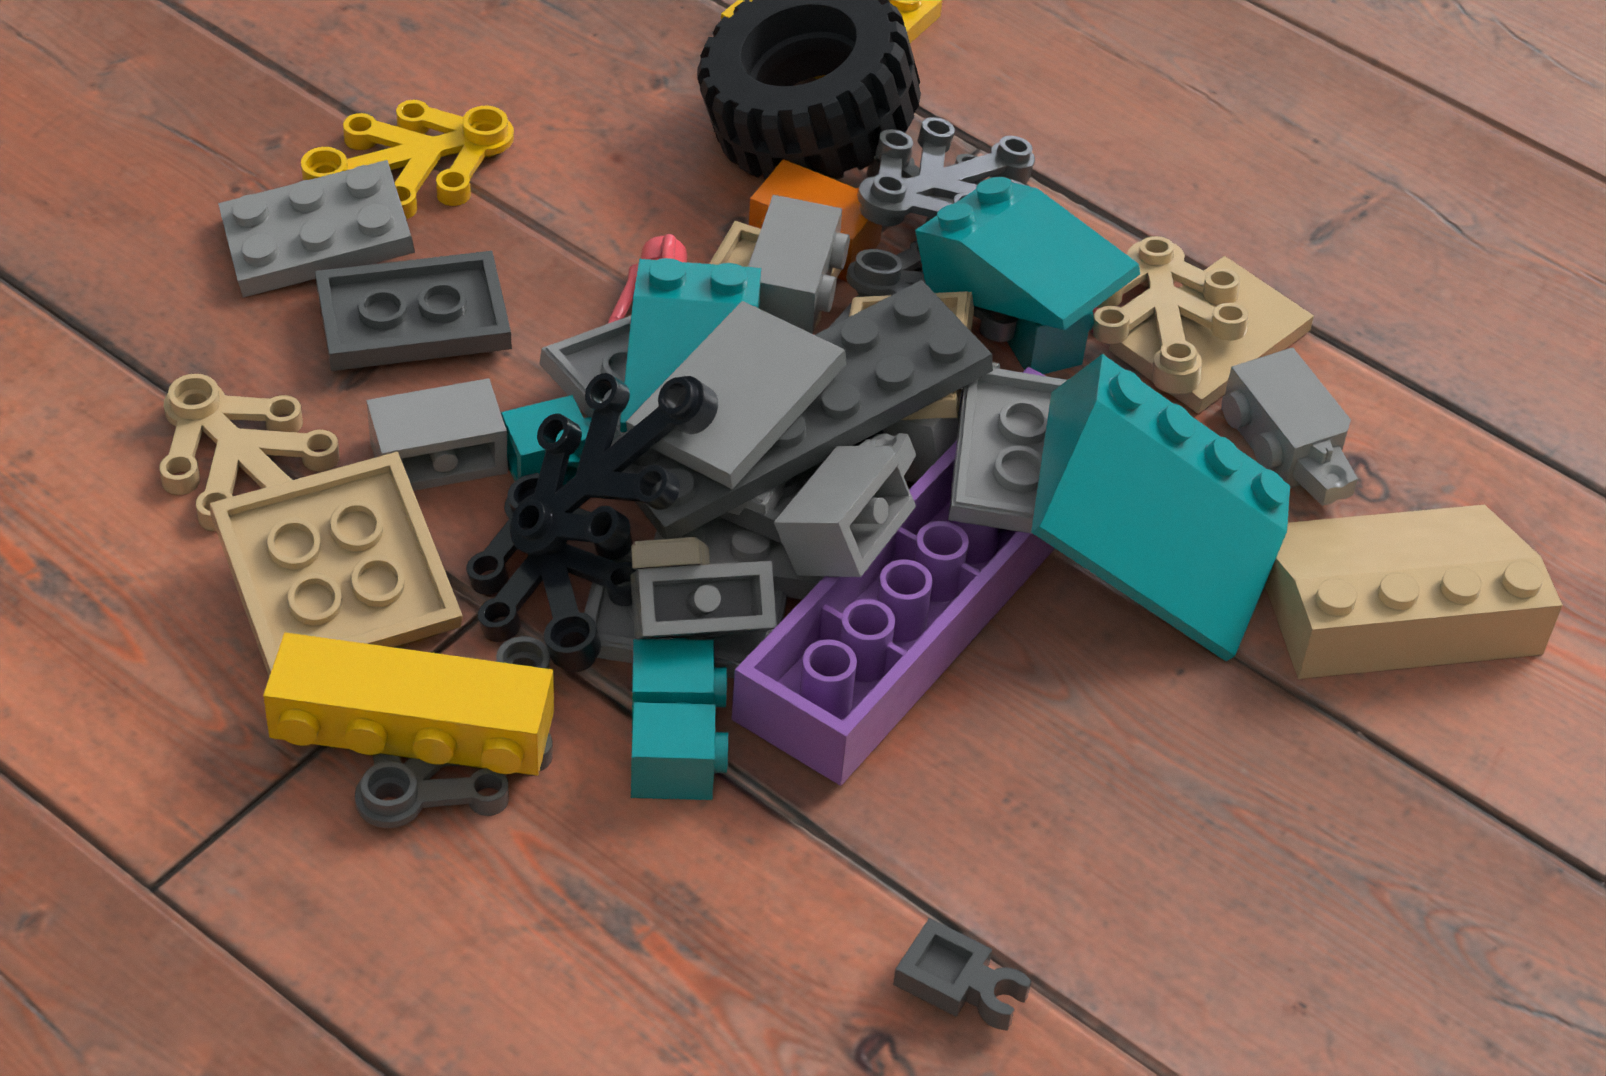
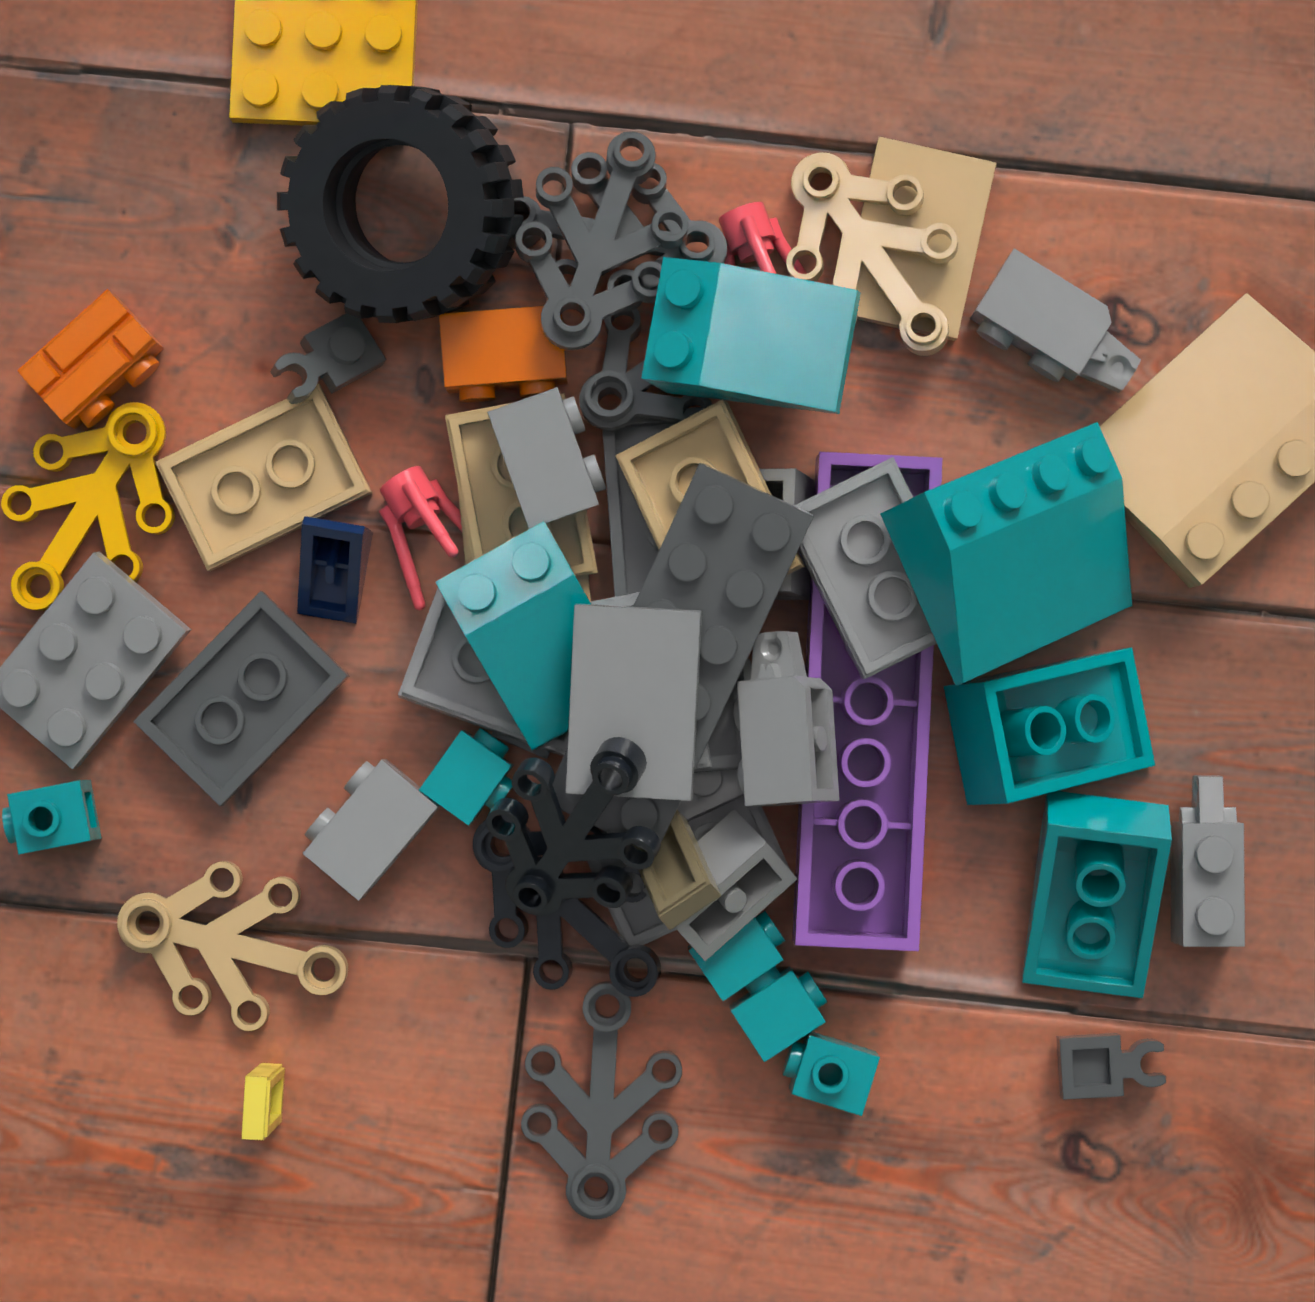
camera: 30 degrees left, 40 degrees up
(167, 535) = (263, 1101): none -> light yellow tile
(193, 295) = (51, 816): none -> teal brick
(336, 559) = (401, 1024): tan plate -> none
(410, 704) = (563, 1123): yellow brick -> none
(495, 71) = (92, 361): none -> orange brick
(557, 208) = (263, 478): none -> tan tile
(567, 264) = (332, 569): none -> dark blue slope
(678, 161) = (334, 353): none -> dark grey plate
(688, 824) = (831, 1072): none -> teal brick
(1048, 828) = (1096, 893): none -> teal slope
(1094, 682) = (1049, 727): none -> teal slope
(1169, 870) = (1207, 870): none -> light grey hinge

